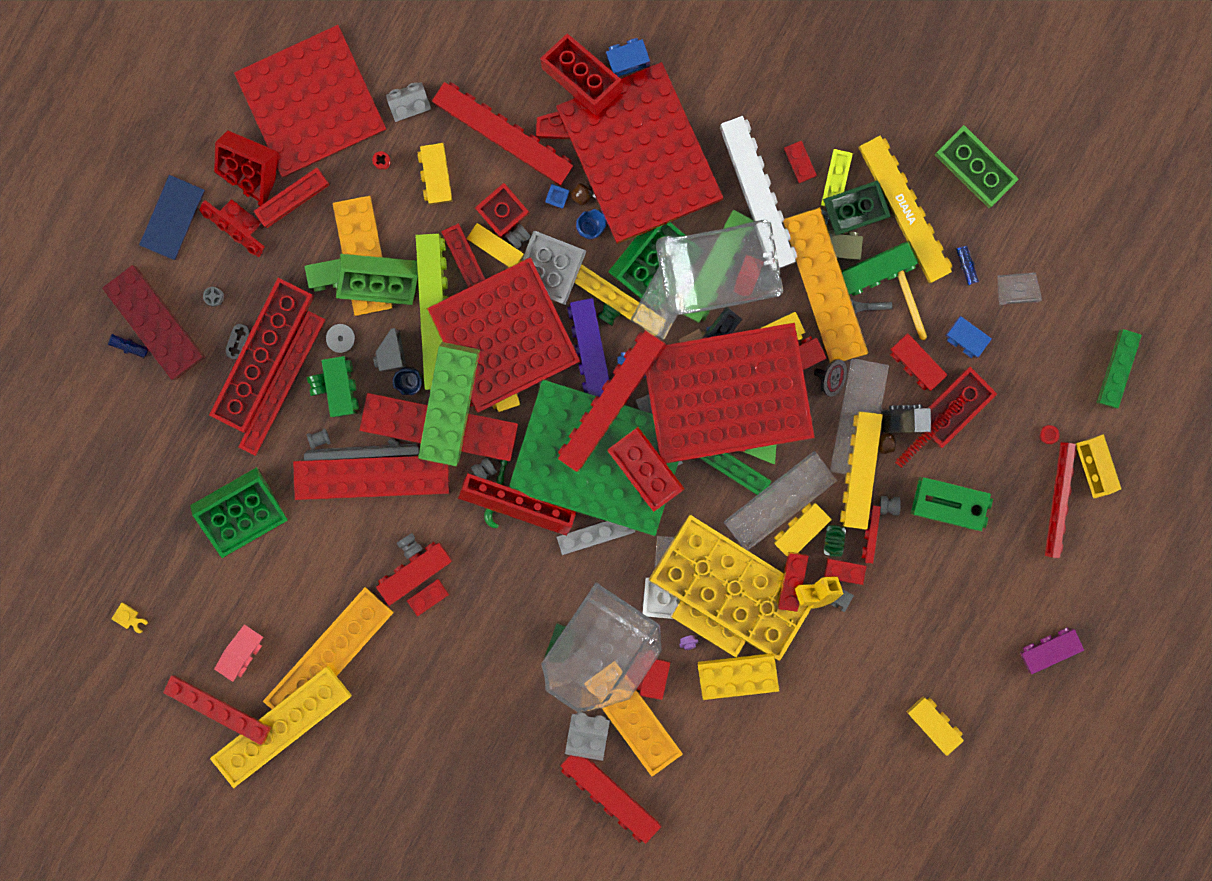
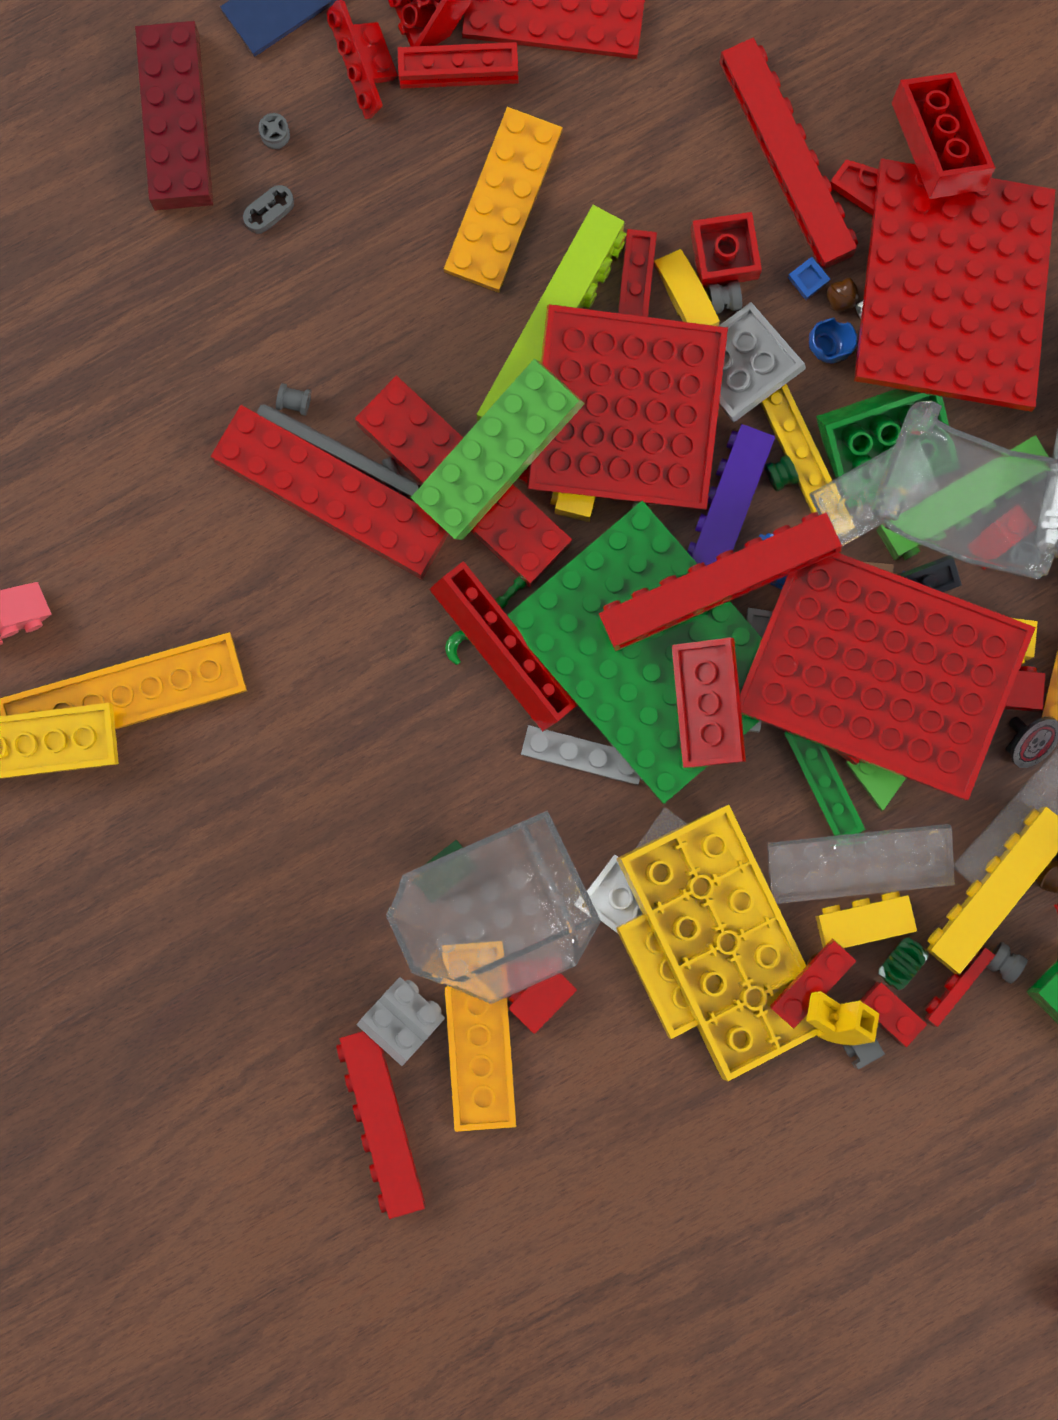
camera: 30 degrees right, 5 degrees down
(128, 346) = (121, 126): clear blue pin -> none
(238, 512) = (125, 431): green slope -> none
(261, 355) = (289, 242): red brick -> none
(282, 383) = (291, 297): red plate -> none
(317, 384) = (338, 327): green wheel -> none
(322, 275) = (440, 192): bright green brick -> none
(340, 338) = (406, 287): light grey piece -> none
(340, 386) = (365, 346): green brick -> none
(376, 279) = (503, 235): bright green slope -> none
(381, 154) = (612, 85): red bush -> none
(390, 353) = (460, 340): dark grey slope -> none
(408, 101) = (688, 38): light grey bracket -> none
(408, 381) = (460, 395): dark blue hair -> none
(412, 549) = (324, 614): dark grey wheel -> none
(414, 573) = (306, 654): red brick -> none
(427, 597) = (304, 699): red plate -> none
(435, 174) = (666, 151): yellow brick -> none
(479, 470) = (496, 573): dark grey wheel -> none
(628, 57) = (1019, 152): blue brick -> none
(688, 642) = (618, 979): medium lavender plate -> none
(738, 676) = (658, 1067): yellow plate -> none
(935, 725) = (888, 1305): yellow brick -> none

